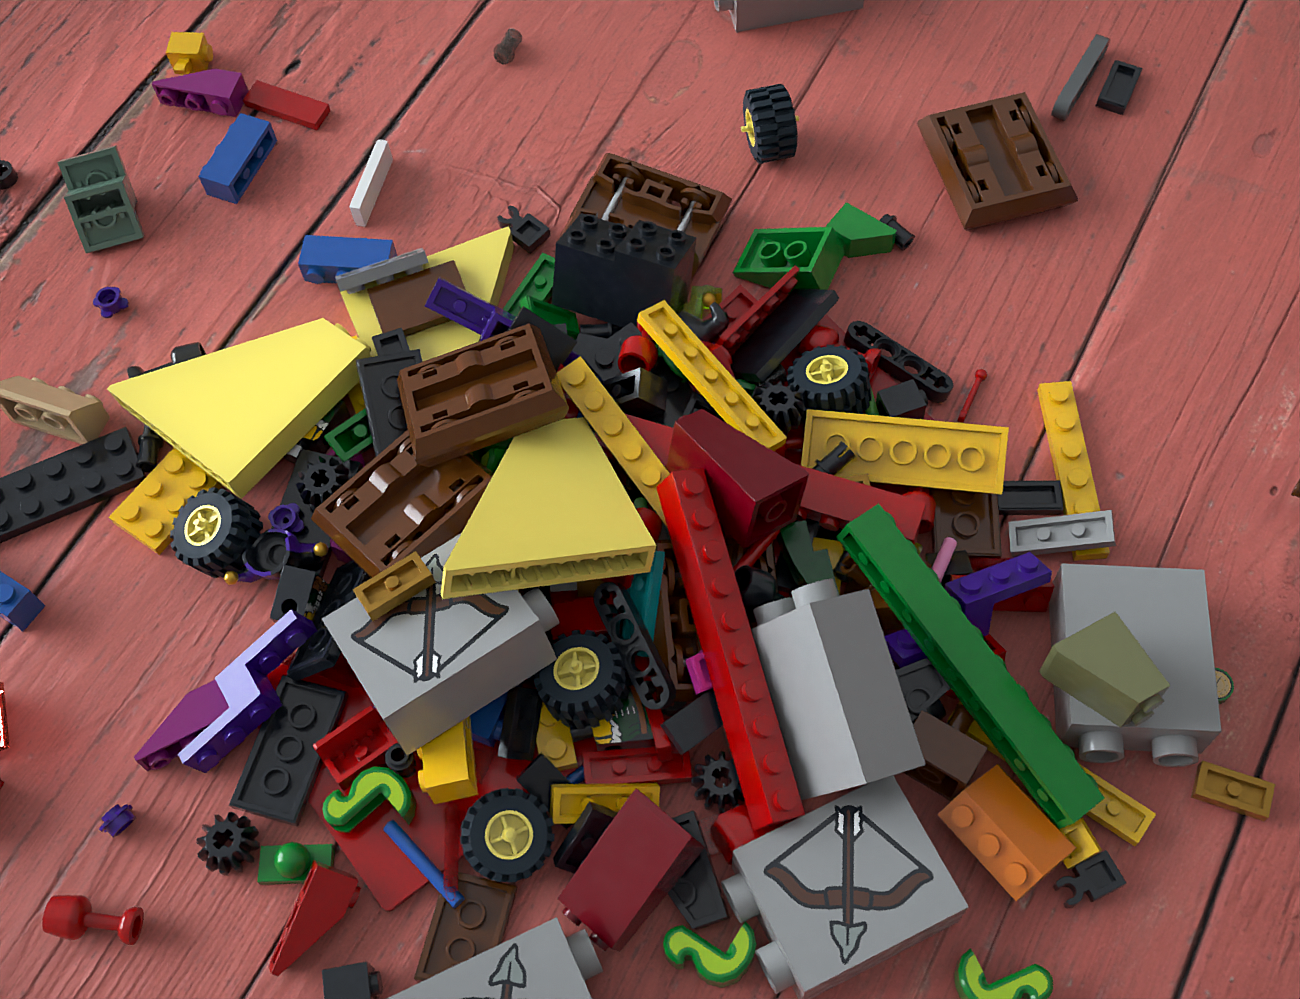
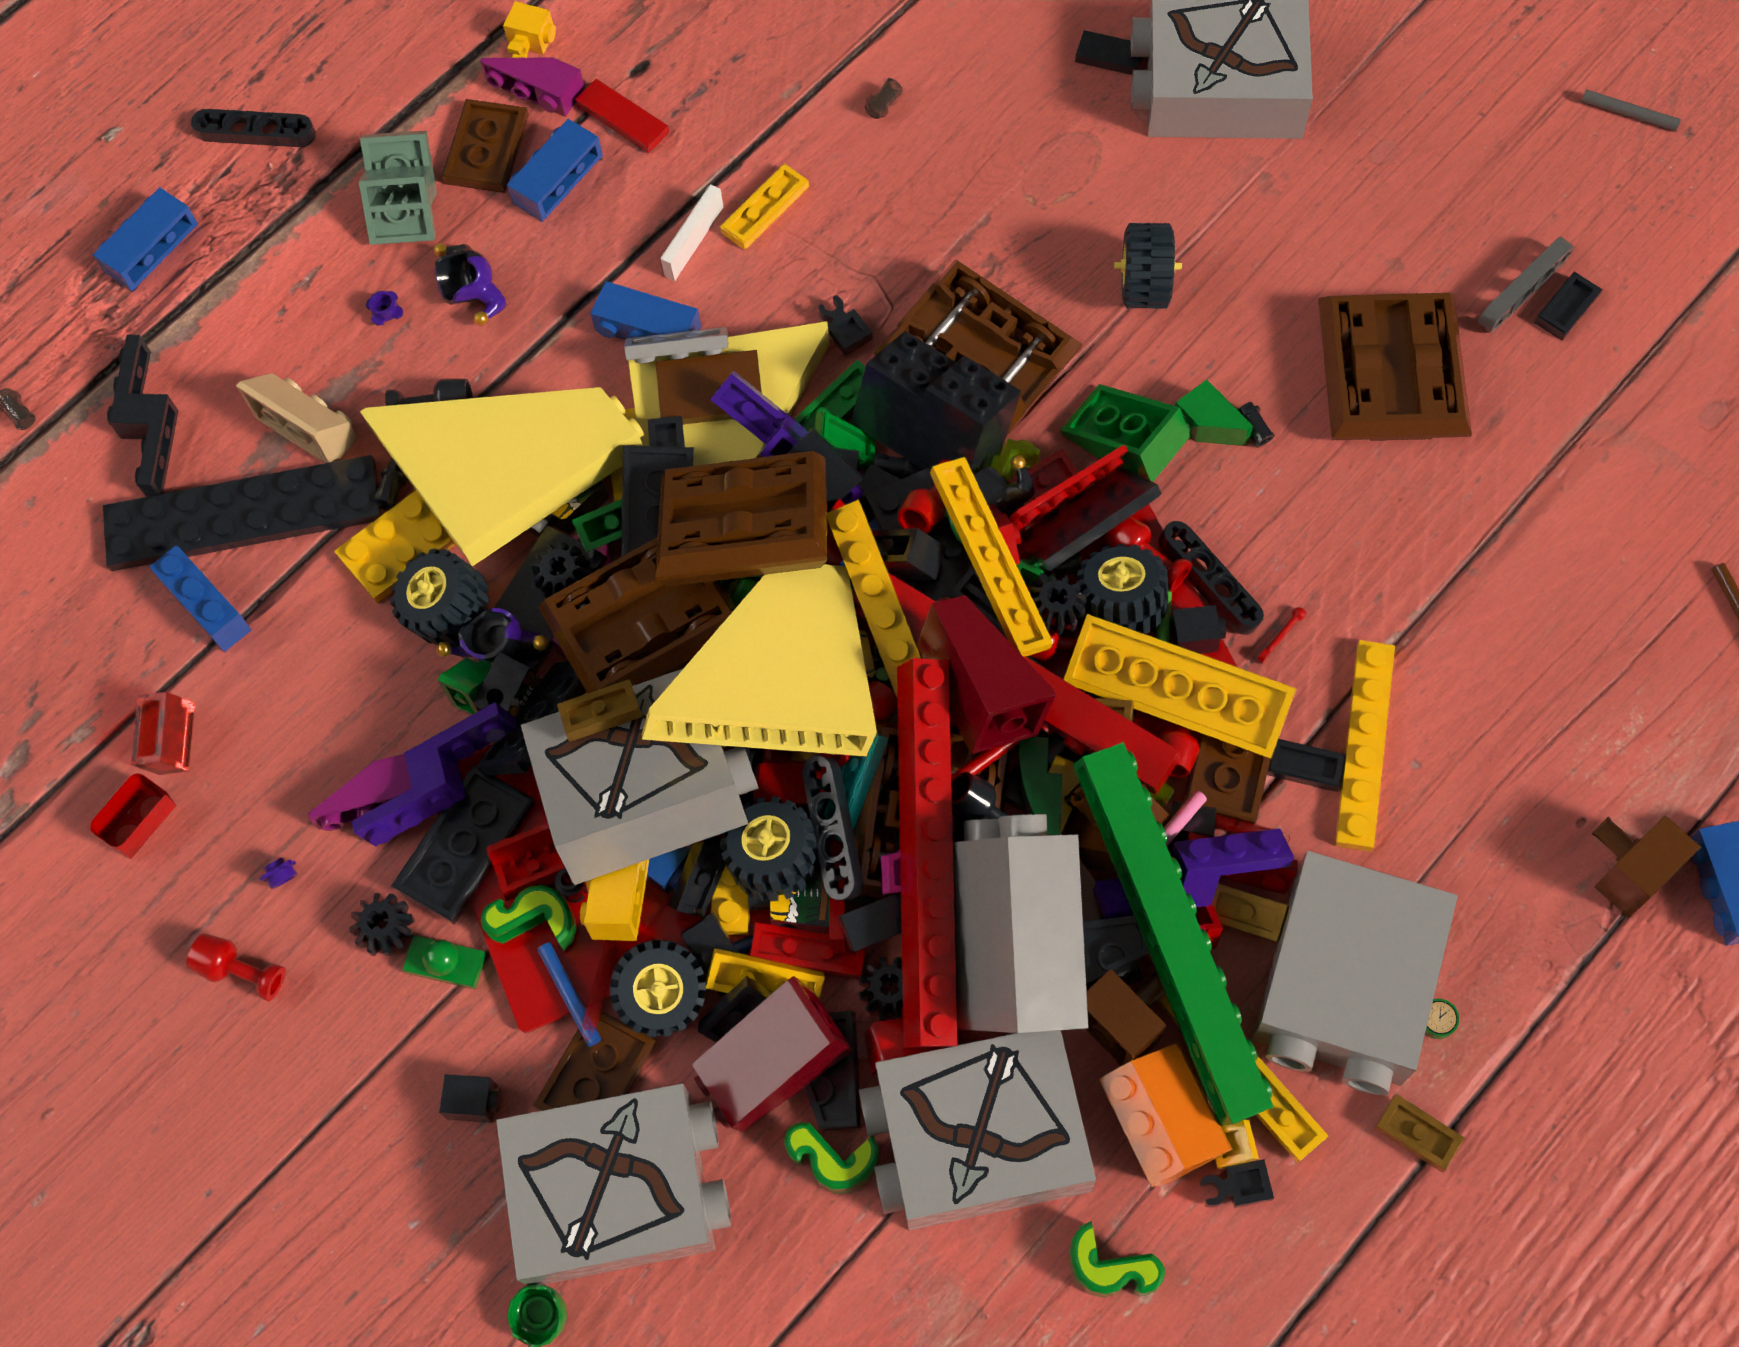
camera: 15 degrees right, 5 degrees up
(171, 153) = (485, 145): none -> reddish brown tile
(179, 259) = (466, 277): none -> piece
(256, 602) = (463, 683): none -> green slope
(284, 512) = (507, 592): dark purple plate -> none
(318, 908) = (455, 1012): red slope -> none
(428, 151) = (764, 206): none -> yellow tile
(831, 463) = (1096, 681): black pin -> none
(1023, 633) = (1249, 912): none -> pearl gold plate
(1062, 533) = (1326, 815): light grey plate -> none
(1107, 672) = (1308, 979): olive slope -> none

